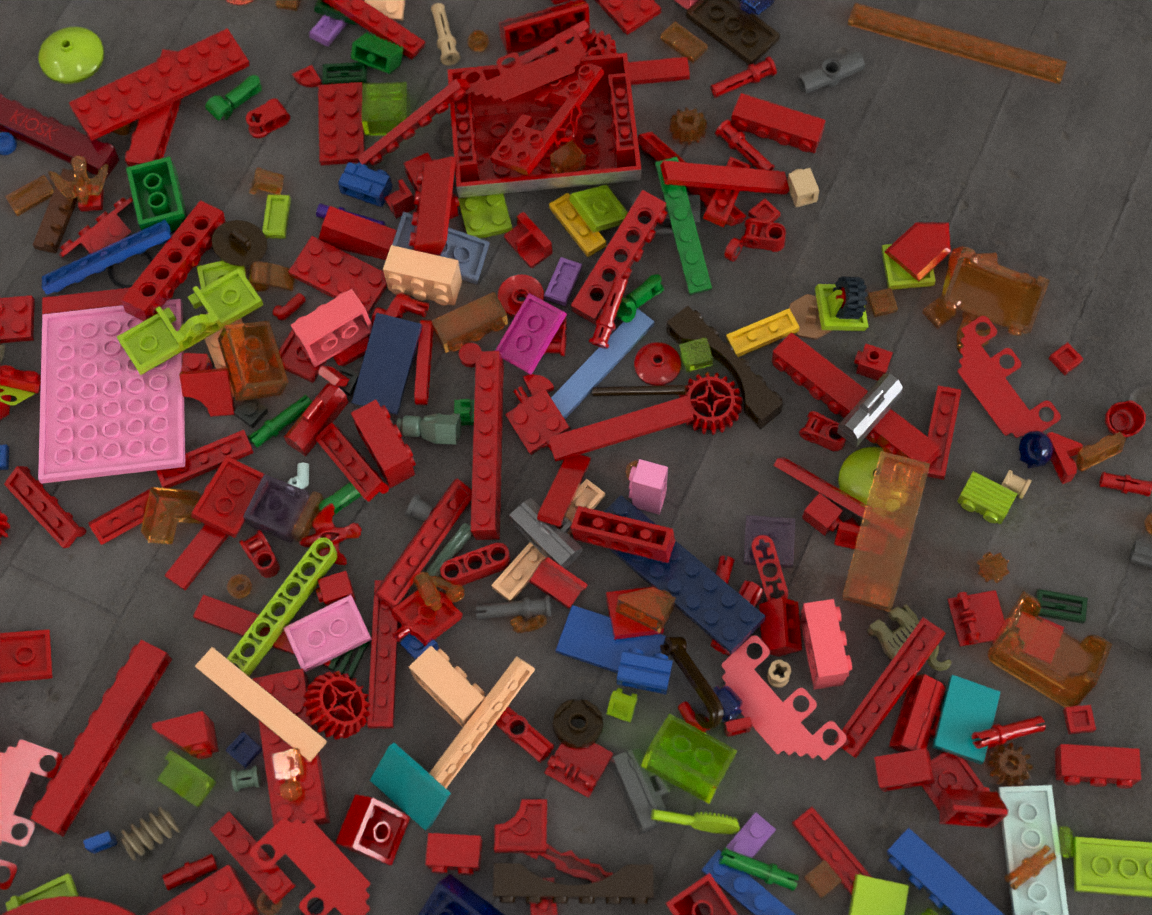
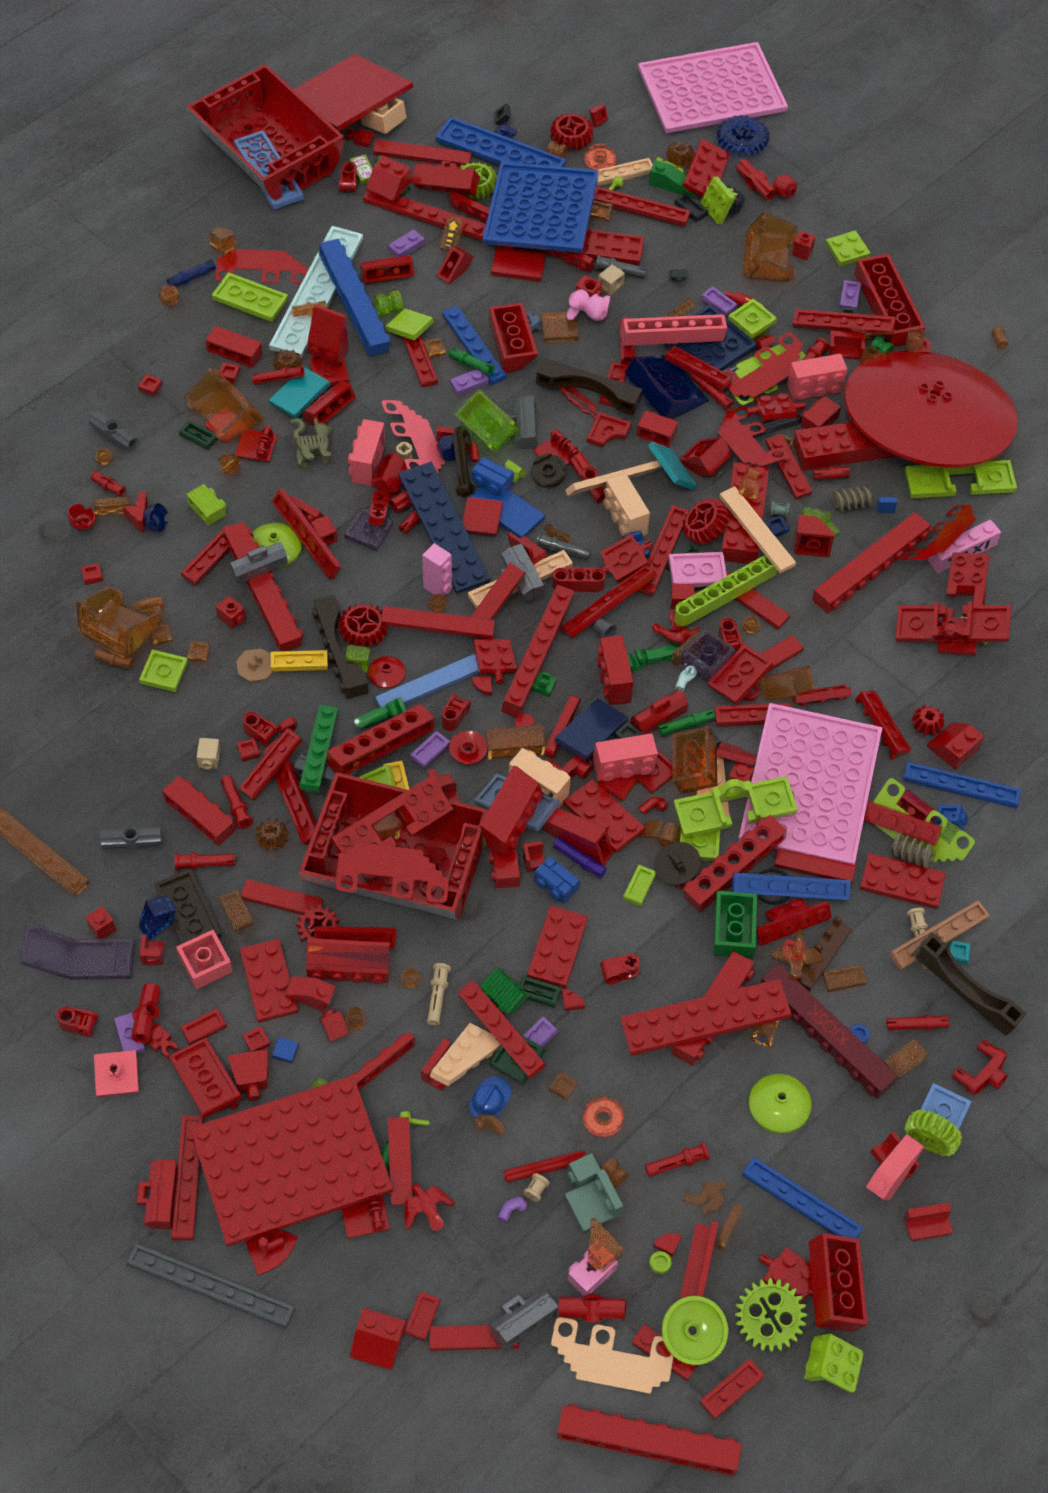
camera: 165 degrees left, 10 degrees down
(223, 108) = (657, 991): green piece -> none
(266, 181) = (640, 910): clear orange tile -> none
(333, 376) = (635, 726): red tile -> none
(351, 462) = (643, 667): red hinge -> none
(384, 106) = (515, 937): clear neon green brick -> none
(419, 118) = (499, 885): red plate -> none
(427, 588) = (618, 564): clear orange plant -> none
(434, 427) = (574, 676): sand green piece -> none
(451, 549) = (590, 598): sand green axle -> none
(530, 333) = (474, 711): dark pink tile -> none
(605, 323) = (413, 696): red pin -> none
(623, 534) = (470, 547): red brick -> none
(640, 390) = (410, 647): dark brown bar -> none
(647, 607) = (472, 506): clear orange slope -> none
(702, 822) = (495, 393): lime piece -> none
(724, 177) = (269, 764): red tile -> none
(819, 429) = (294, 581): red piece -> none
(842, 304) = (230, 652): plate -> none
(885, 531) = (268, 503): clear orange plate -> none
(890, 686) = (338, 415): red plate -> none
(904, 770) = (356, 374): red panel -> none
(921, 248) = (148, 673): red tile -> none
(991, 388) = (157, 567): red piece -> none
(1016, 484) = (181, 506): tan bush -> none
(1066, 841) = (278, 317): clear neon green tile -> none

